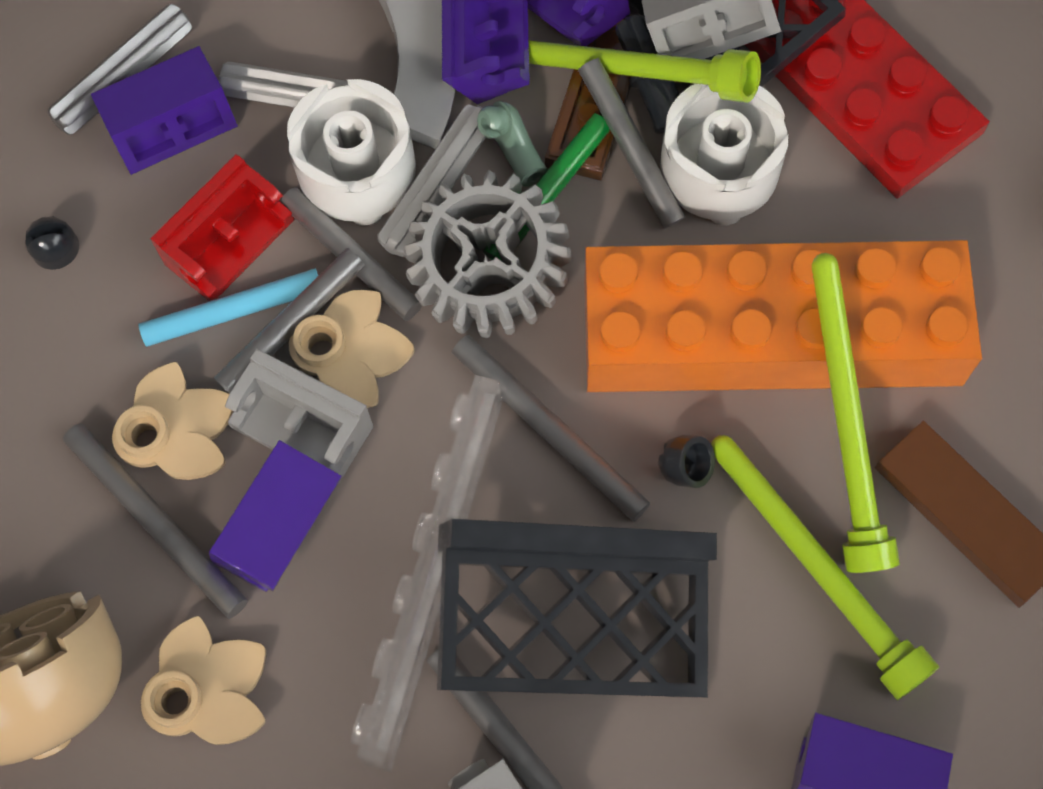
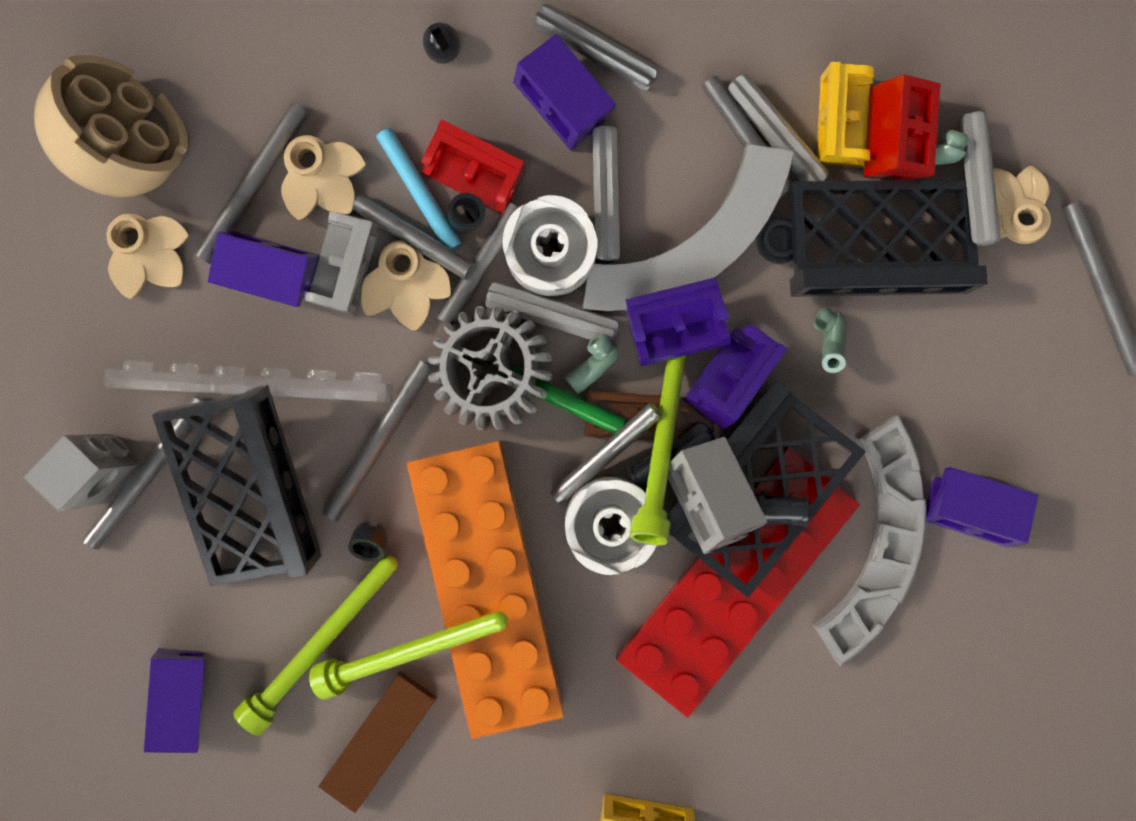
camera: 70 degrees right, 20 degrees up
(279, 250) = (472, 207): none -> black hinge

